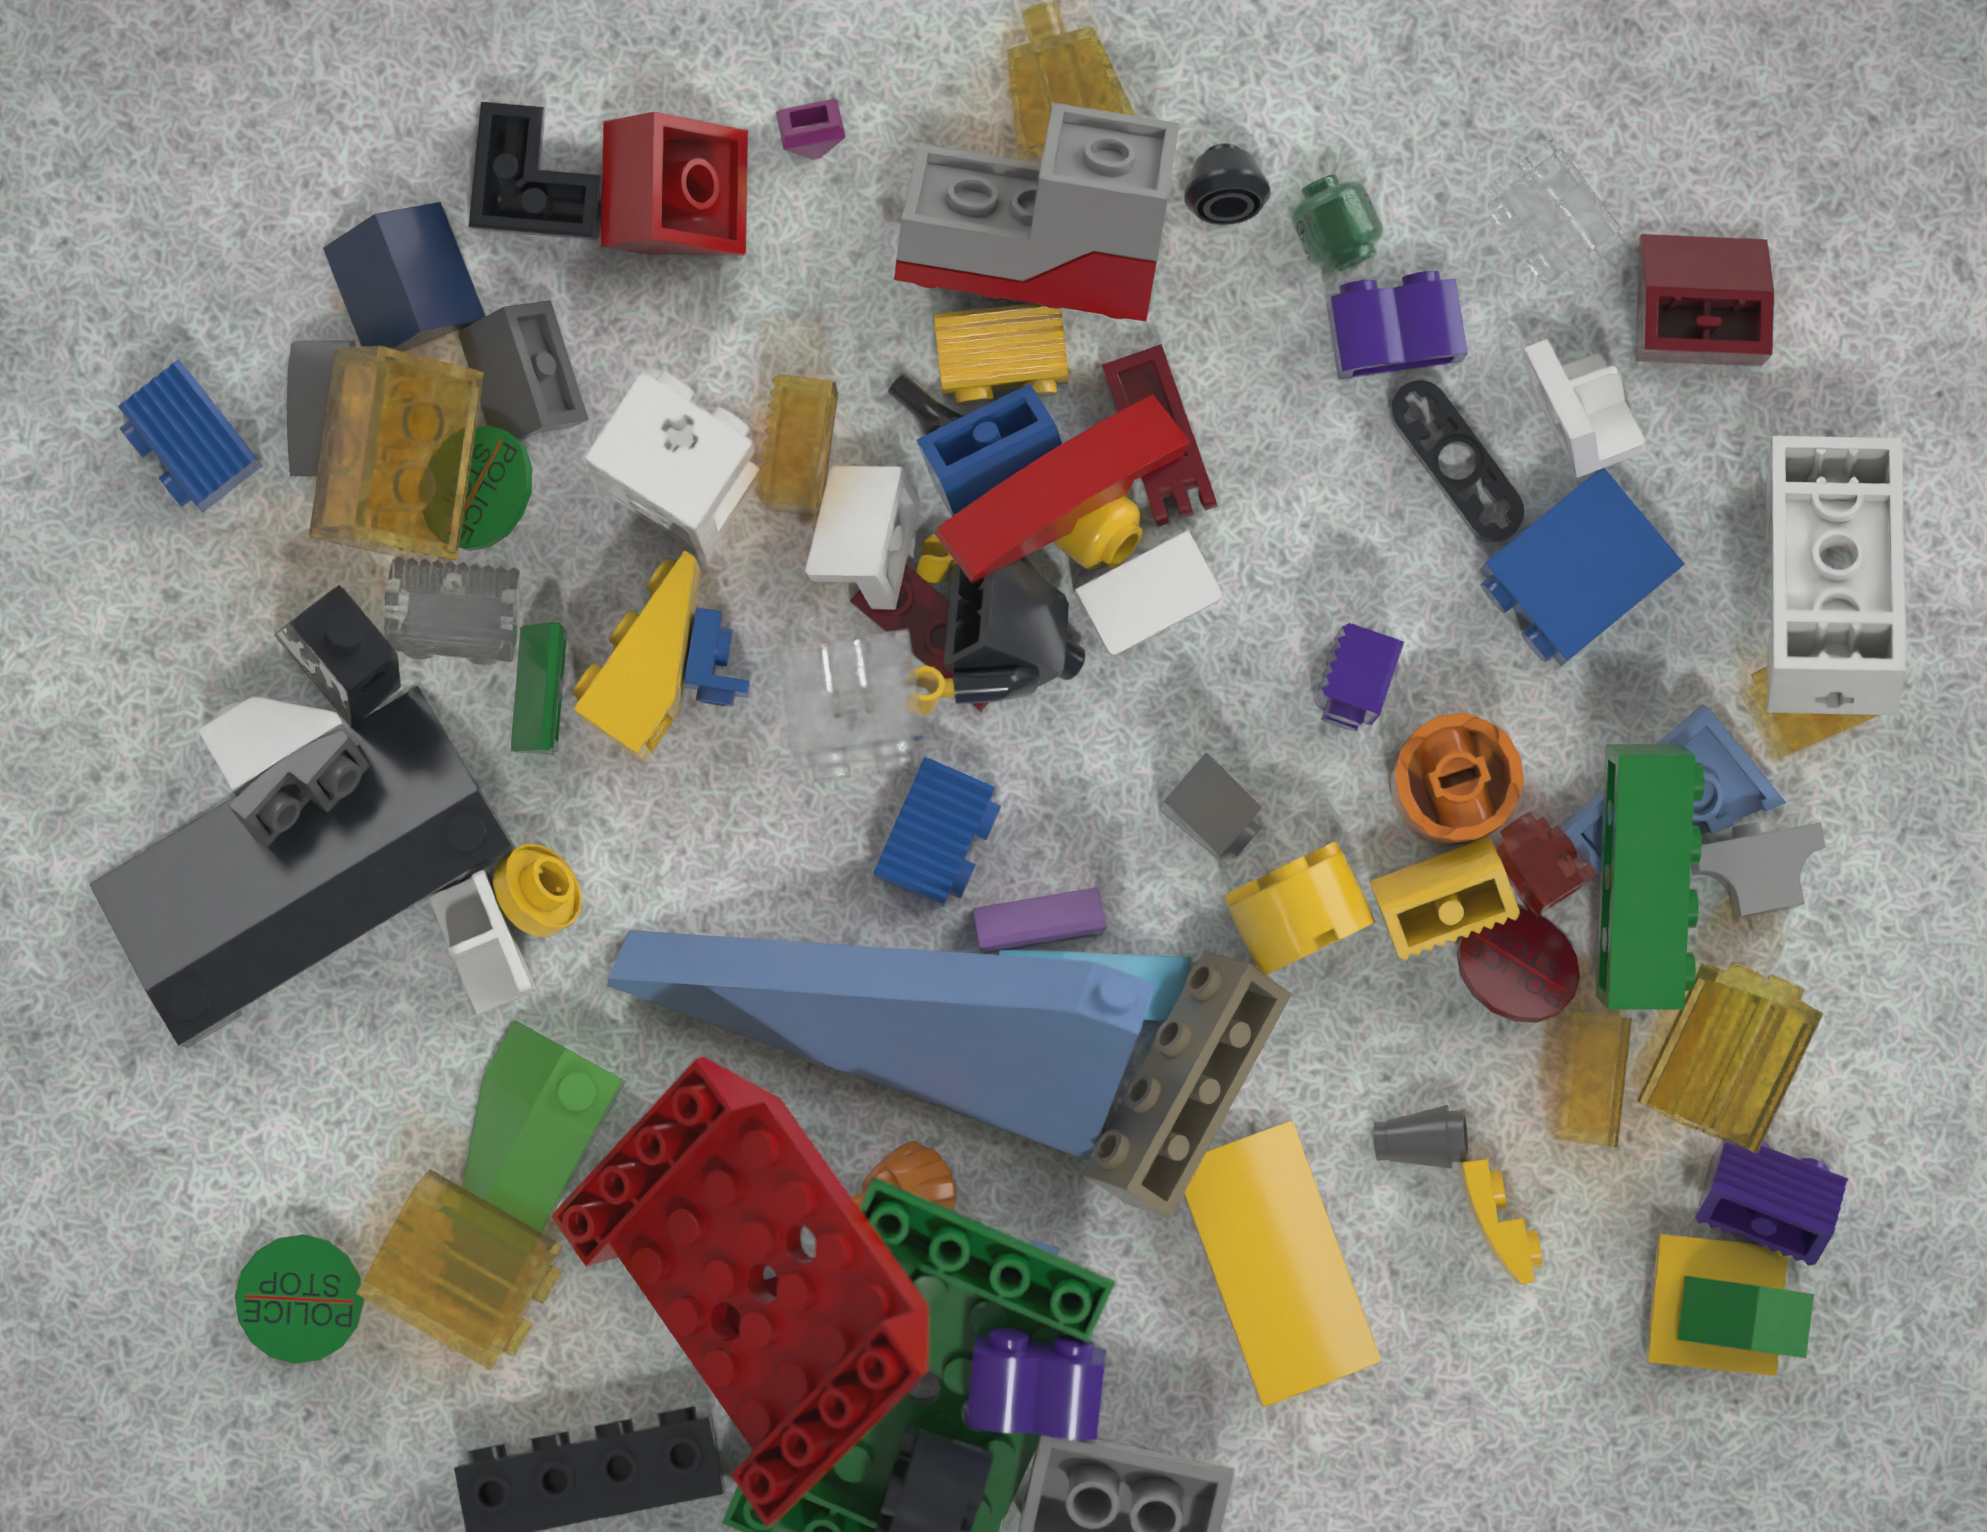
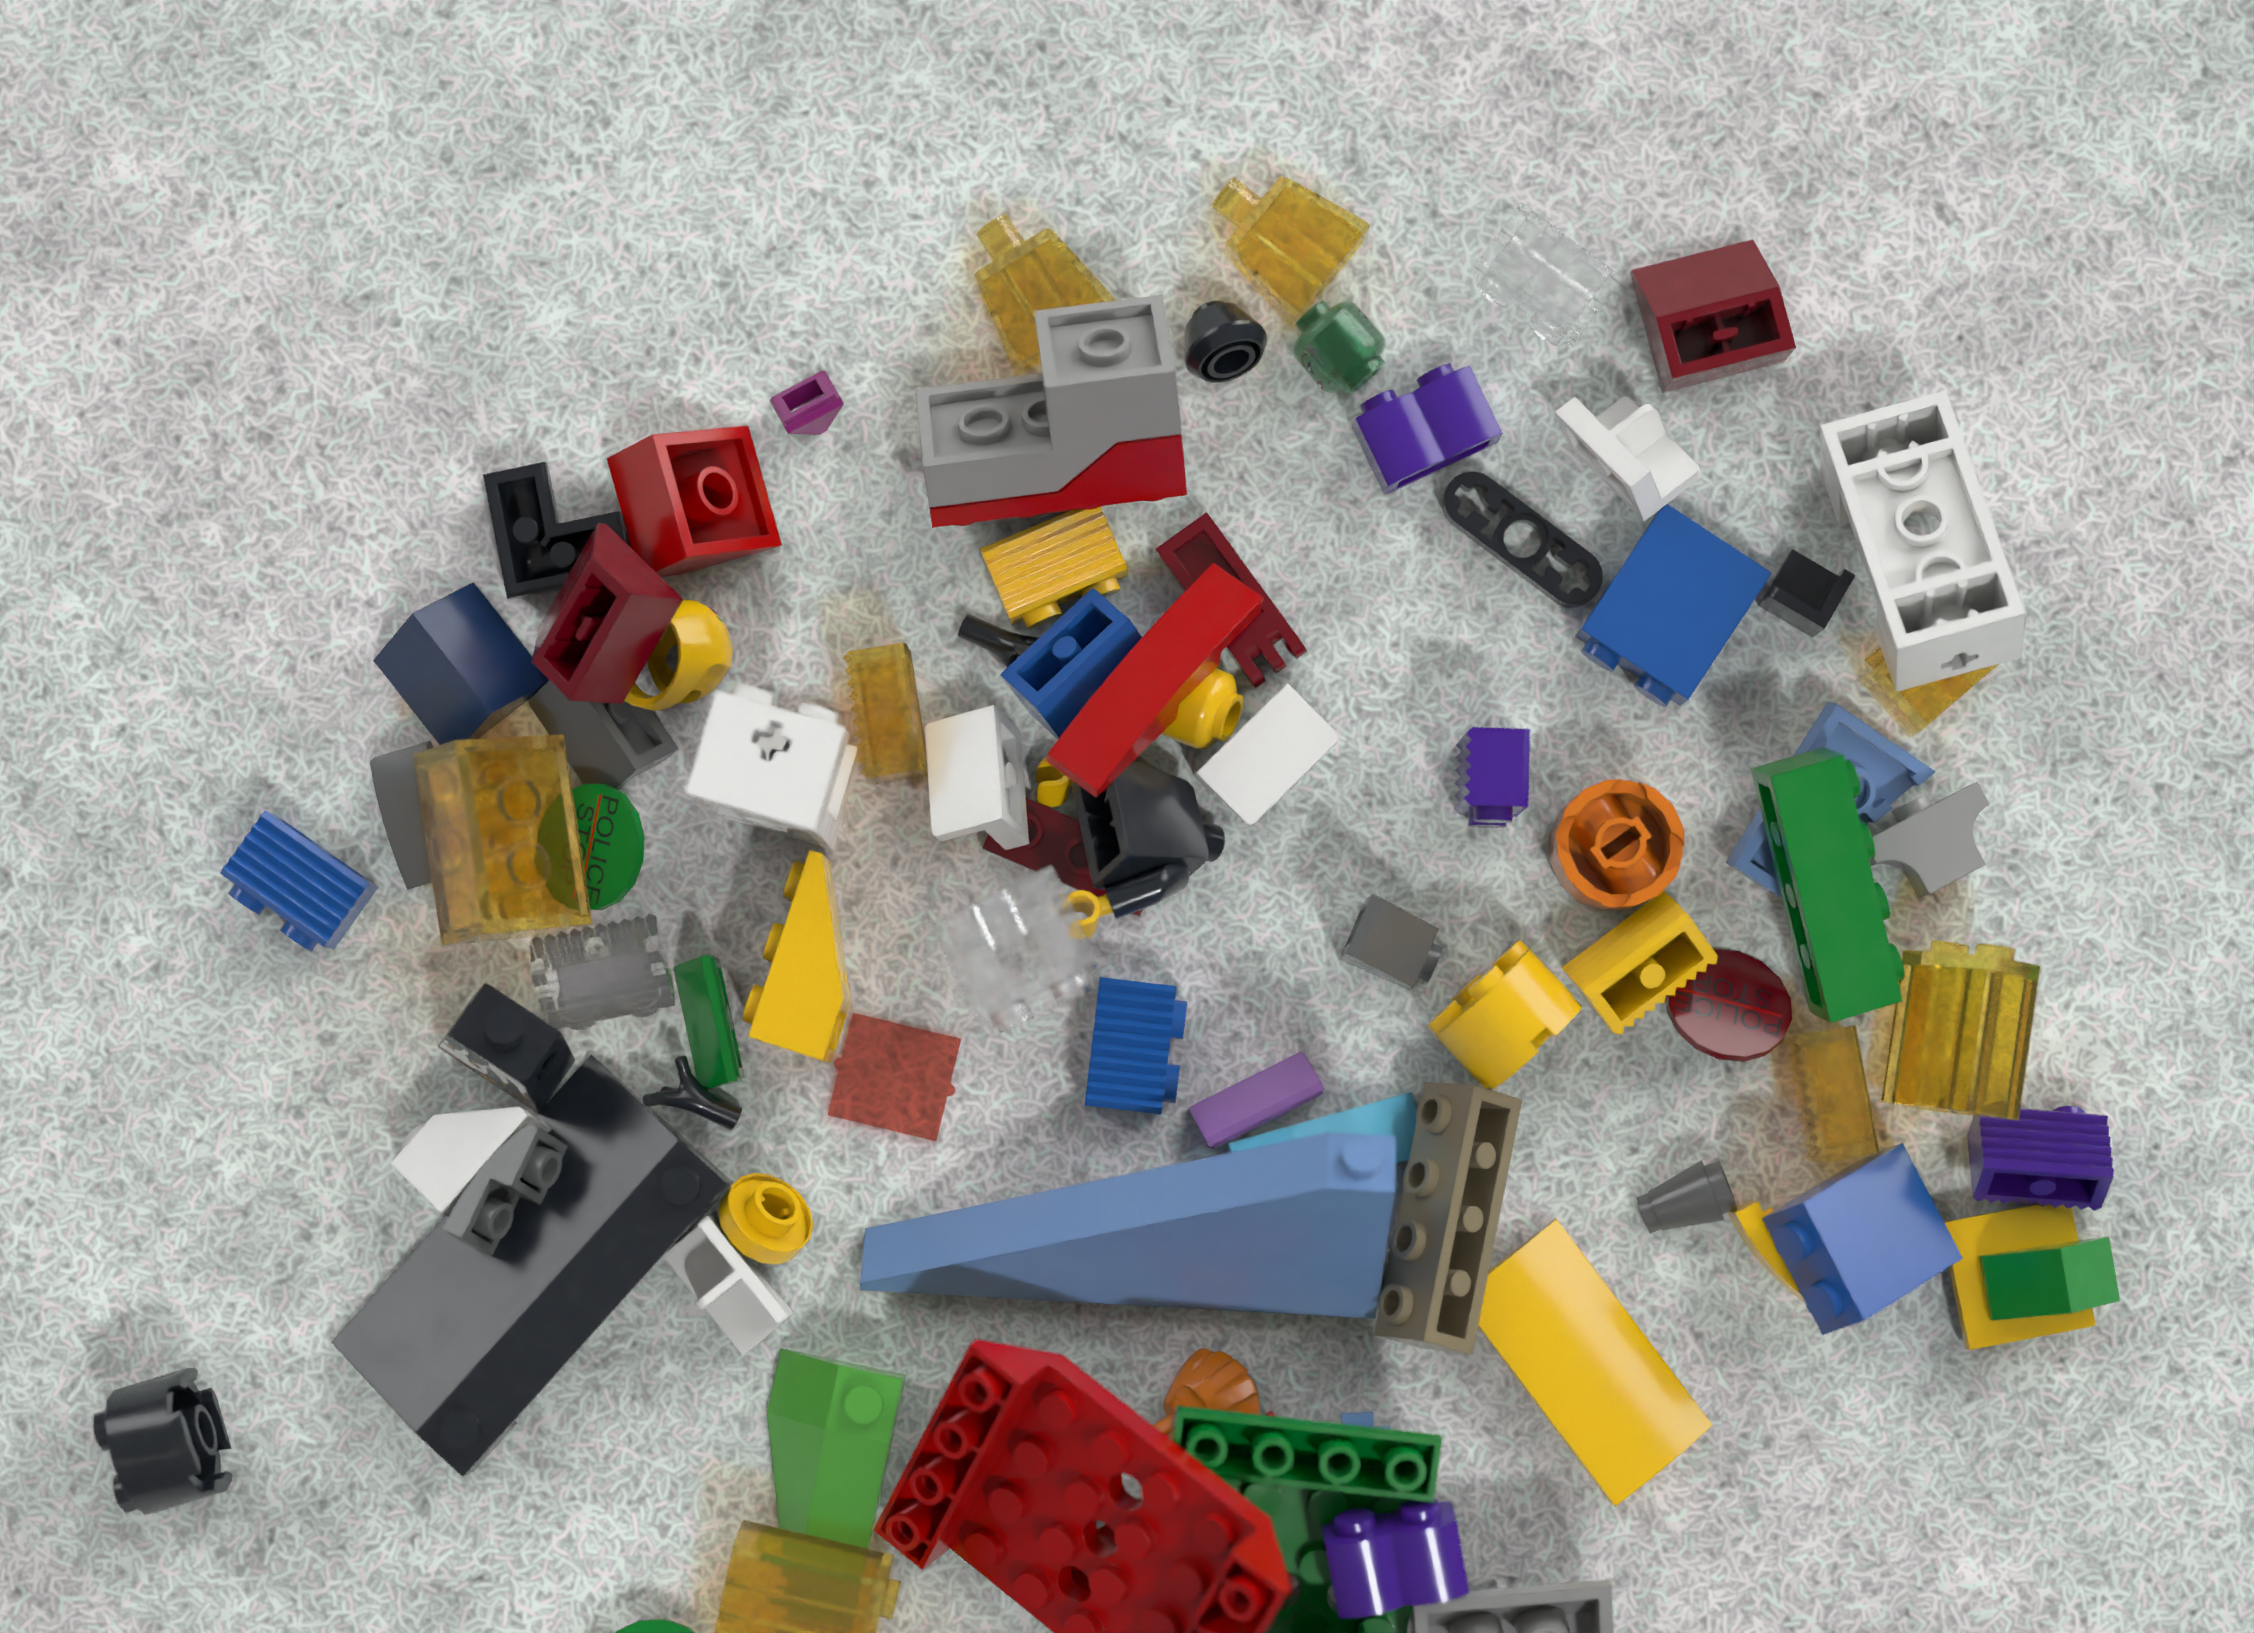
camera: 15 degrees left, 0 degrees up
(504, 757) = (695, 1098): none -> black bar
(554, 276) = (604, 621): none -> dark red slope
(640, 330) = (702, 658): none -> yellow helmet
(700, 794) = (894, 1077): none -> clear red piece
(711, 647) = (860, 934): blue bracket -> none
(1318, 109) = (1288, 242): none -> clear yellow torso
(1541, 863) = (1720, 900): clear red brick -> none
(1576, 1223) = (1862, 1239): none -> brick
(1712, 593) = (1805, 593): none -> black panel

